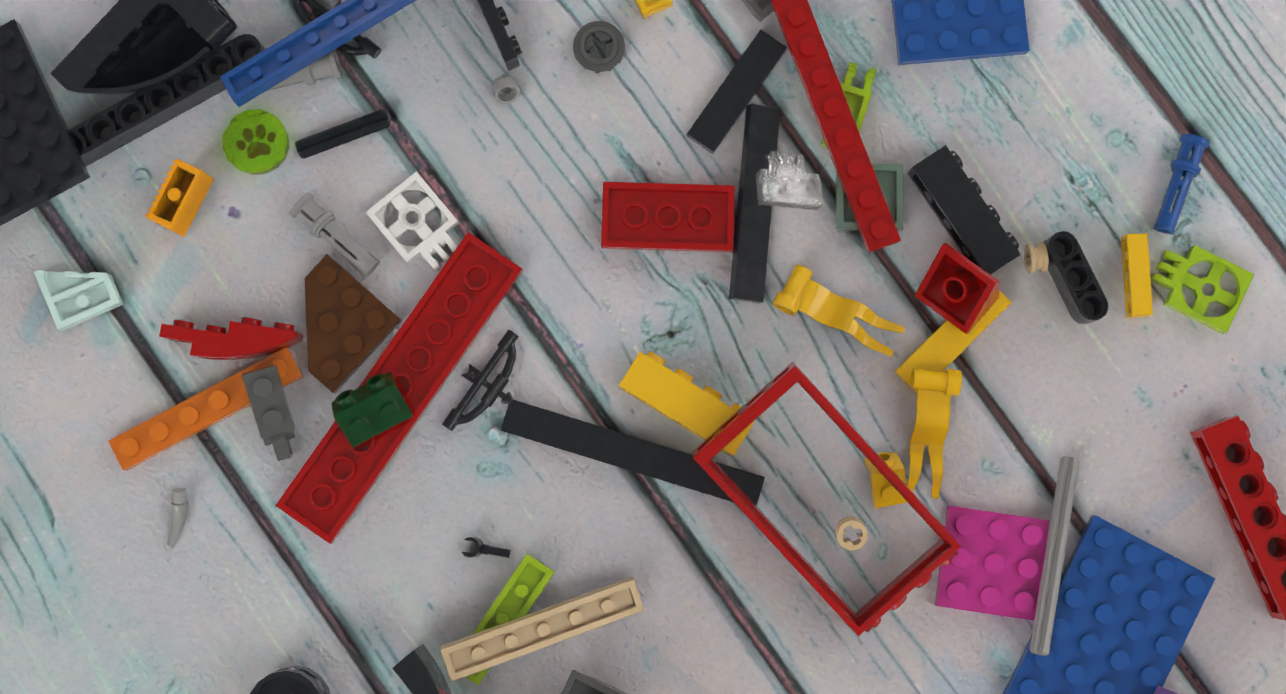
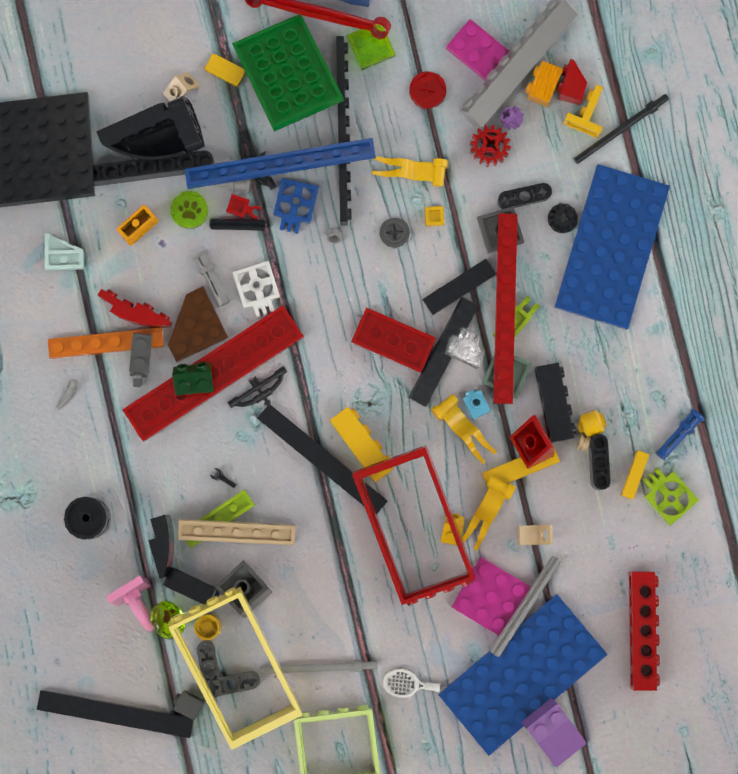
camera: 25 degrees right, 0 degrees up
(333, 103) = (239, 206): none -> red plate
(425, 89) = (292, 218): none -> blue piece
(841, 265) = (475, 404): none -> medium azure brick
(846, 542) = (423, 544): tan bush -> none
(1020, 436) = (534, 535): none -> tan bracket
(1036, 221) = (592, 423): none -> yellow head

